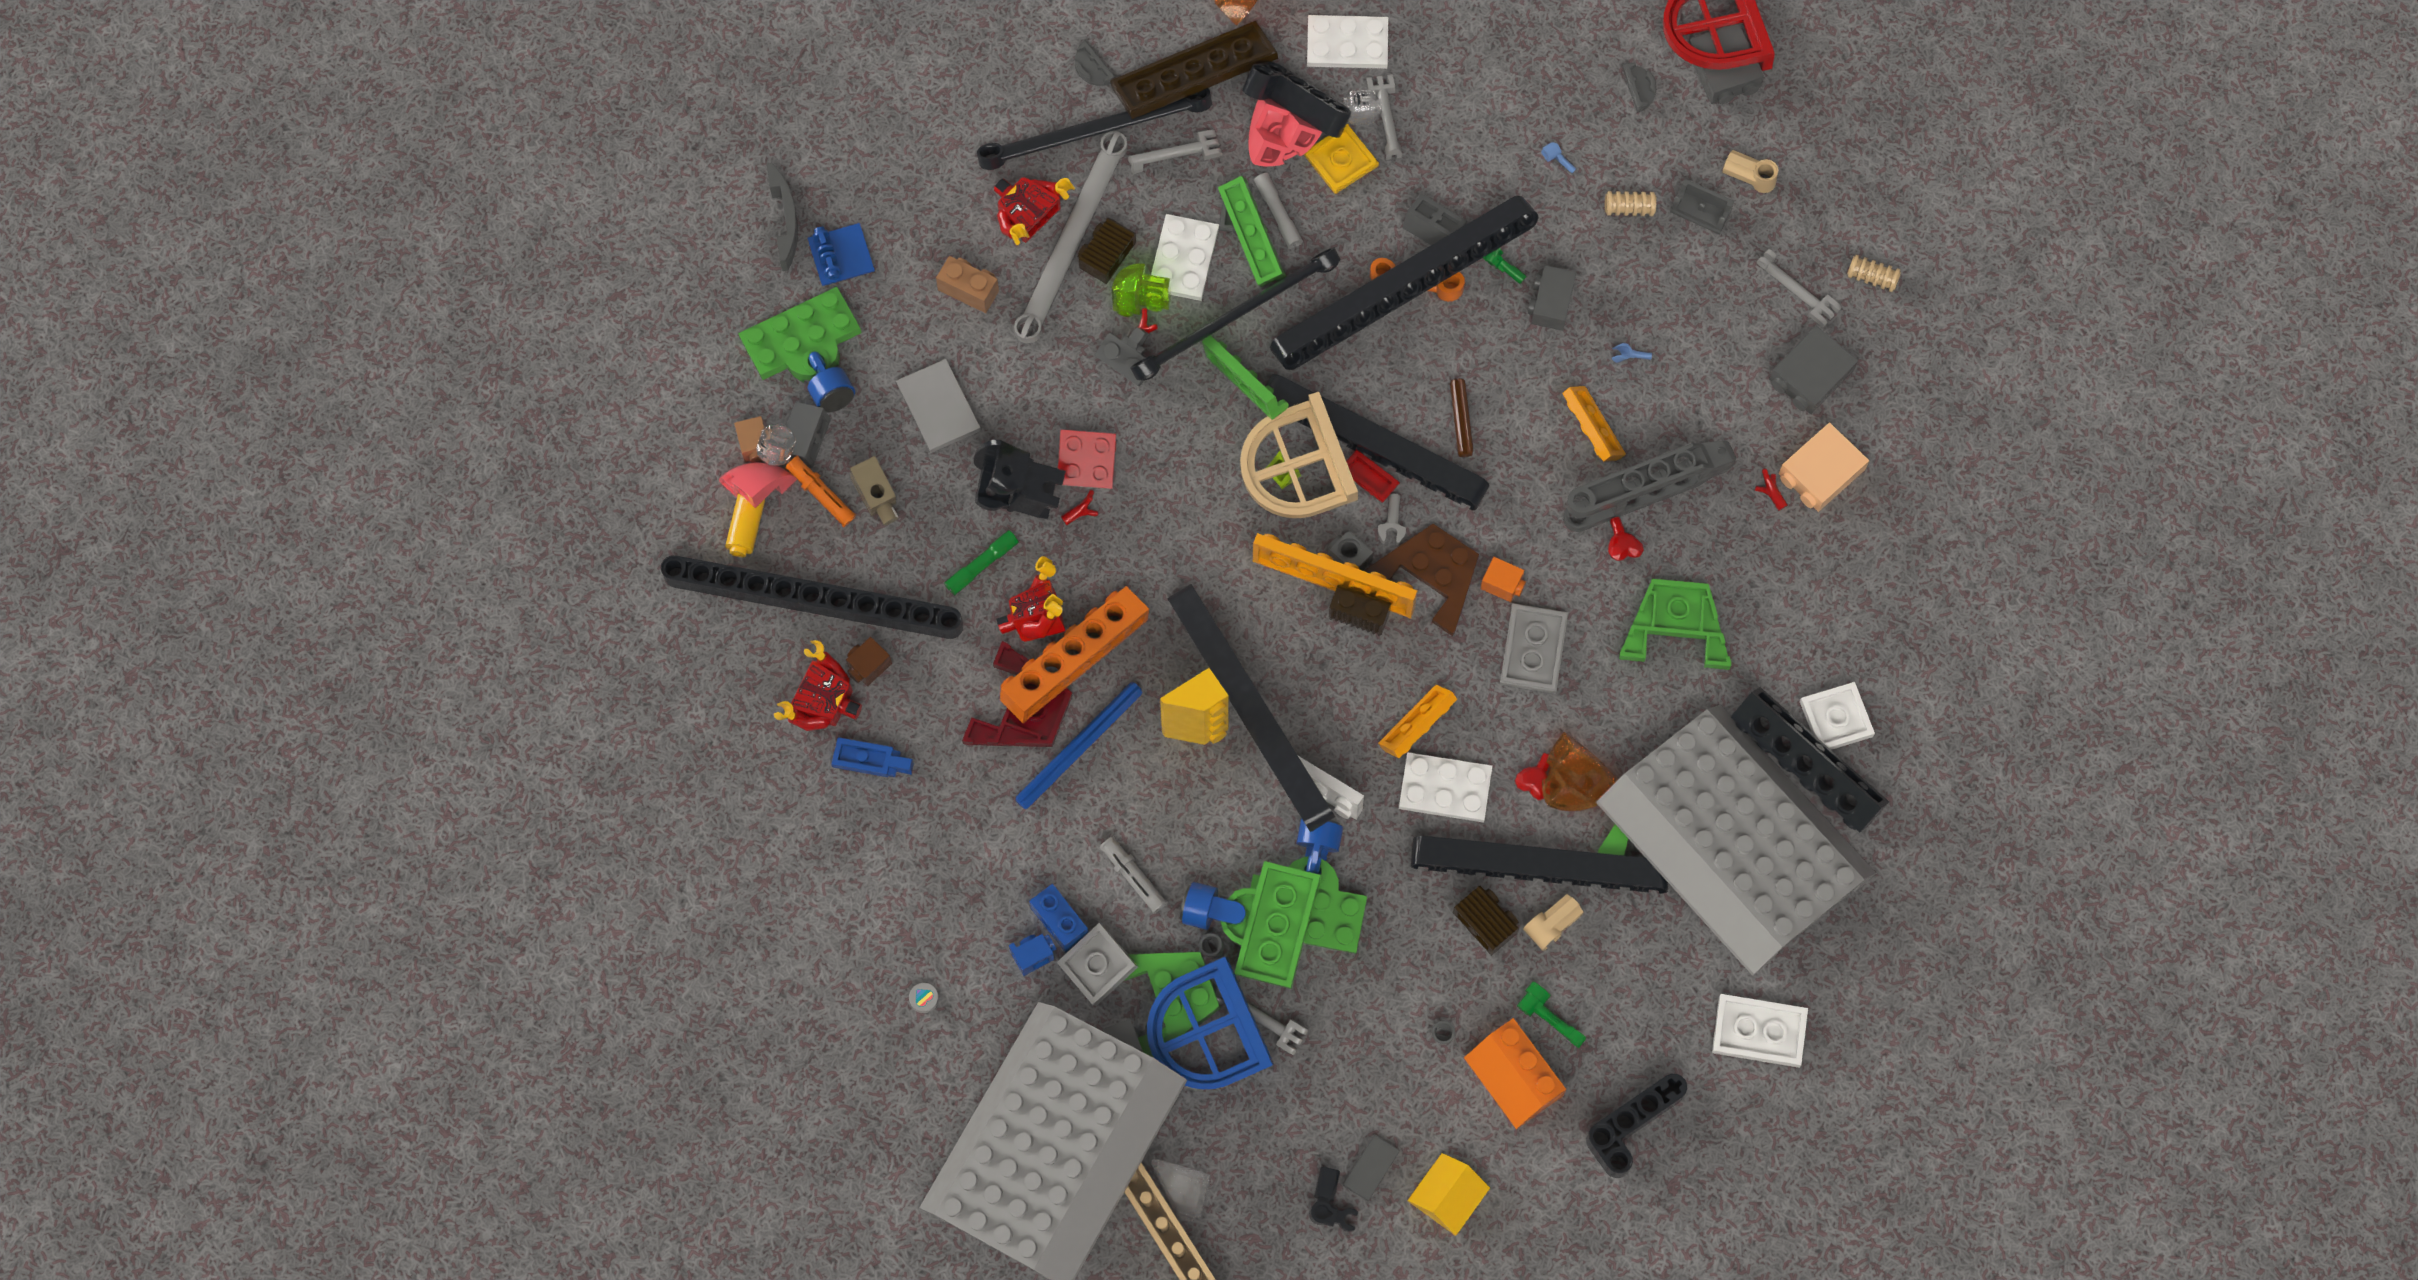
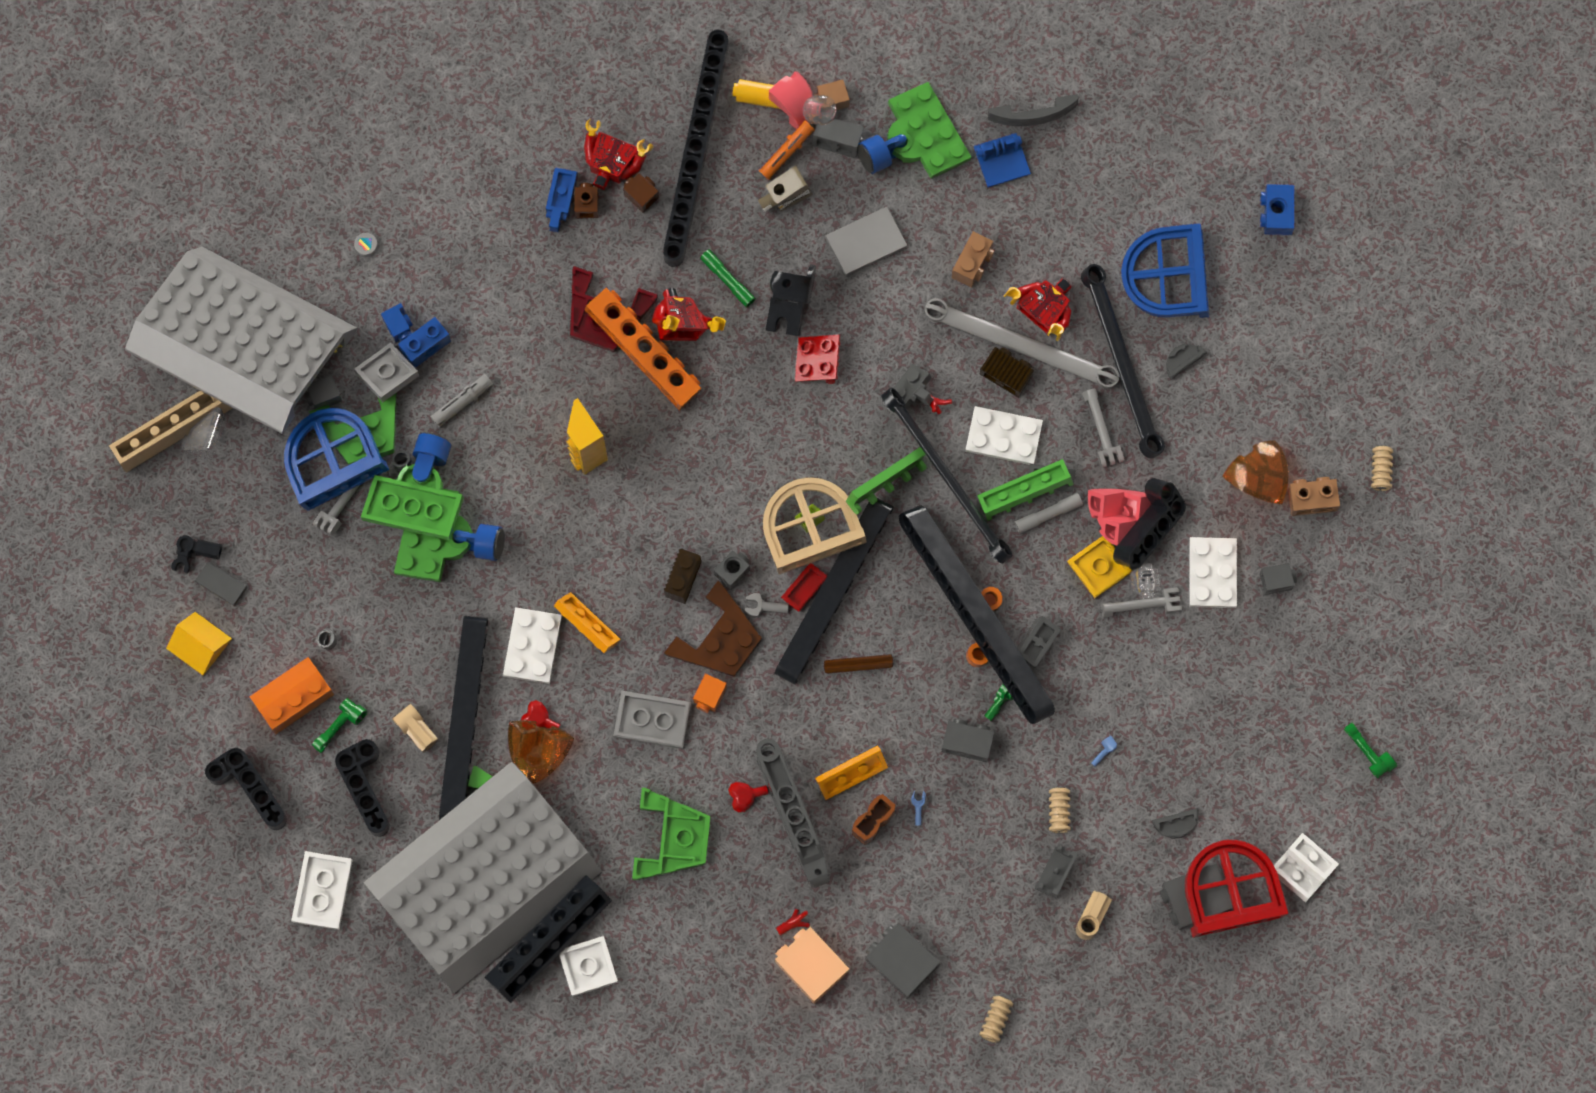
camera: 90 degrees right, 5 degrees up
(884, 734) = (588, 208): none -> reddish brown brick
(988, 45) = (1196, 269): none -> blue window
(1078, 745) = (571, 357): blue axle -> none
(1080, 510) = (774, 355): red bar -> none
(1135, 288) = (965, 392): clear neon green brick -> none
(1193, 69) = (1179, 441): dark brown tile -> none
(1251, 708) = (588, 481): black beam -> none
(1326, 572) = (713, 546): light orange plate -> none
(1344, 798) = (527, 542): white plate -> none
(1486, 919) = (418, 674): dark brown brick -> none
(1632, 978) = (365, 791): none -> black beam
(1646, 394) = (868, 824): none -> dark orange brick
(1819, 307) = (965, 971): light grey hinge -> none

